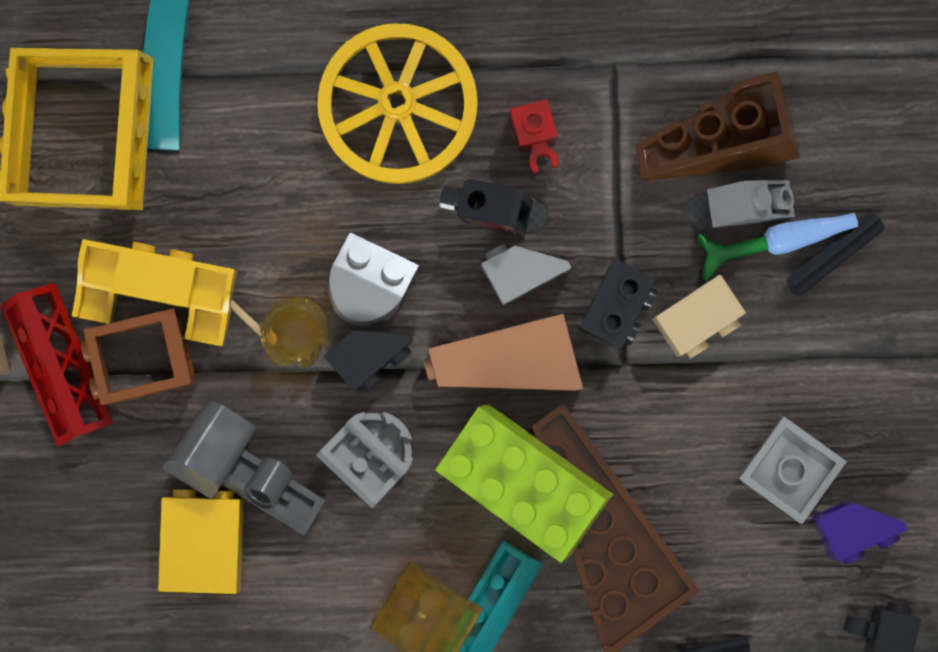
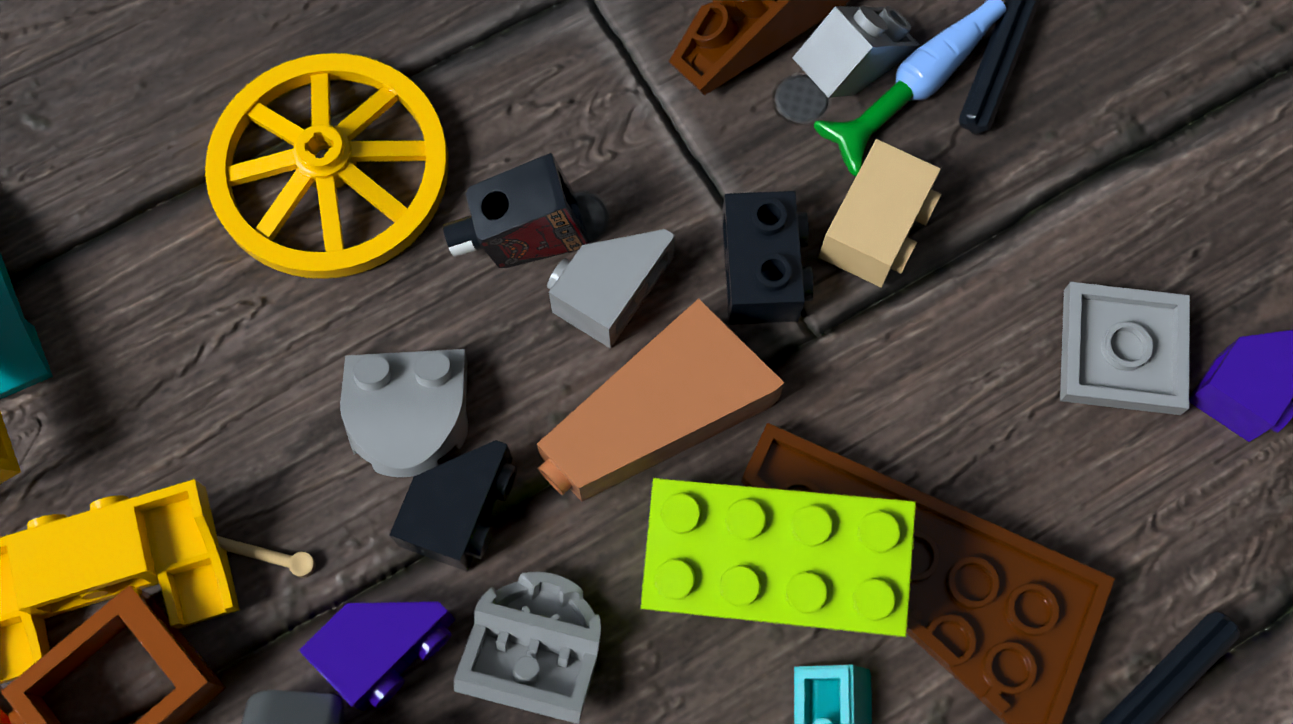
camera: 30 degrees left, 15 degrees down
(284, 407) = (373, 644): none -> dark purple slope
(294, 331) = (331, 528): clear yellow hair -> none
(534, 131) = (527, 100): red brick -> none

